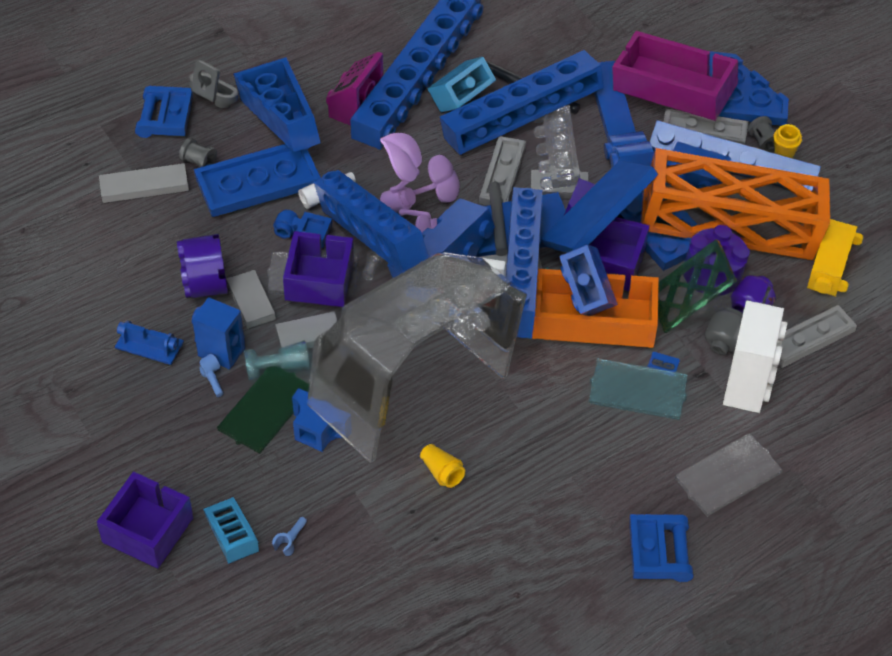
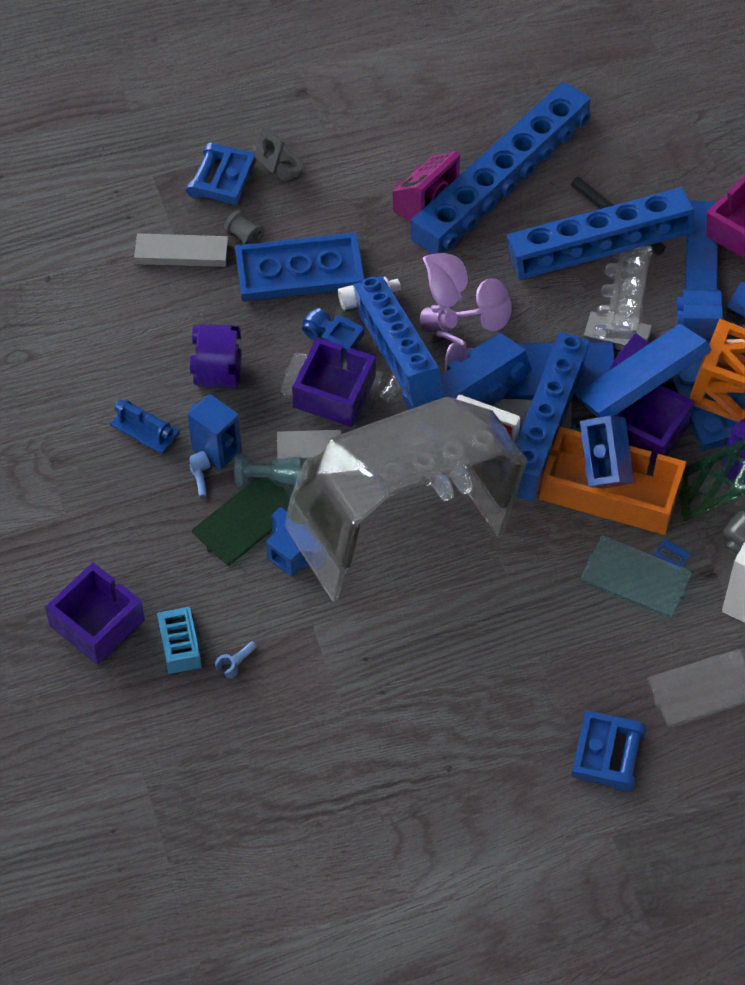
camera: 15 degrees right, 5 degrees up
(251, 299) = (259, 399): light grey tile -> none
(279, 103) = (340, 186): blue wedge -> none
(443, 466) = (408, 618): yellow cone -> none
(461, 84) = (541, 201): dark azure brick -> none
(498, 218) = (538, 357): dark grey bar -> none
(503, 168) = (560, 306): light grey tile -> none

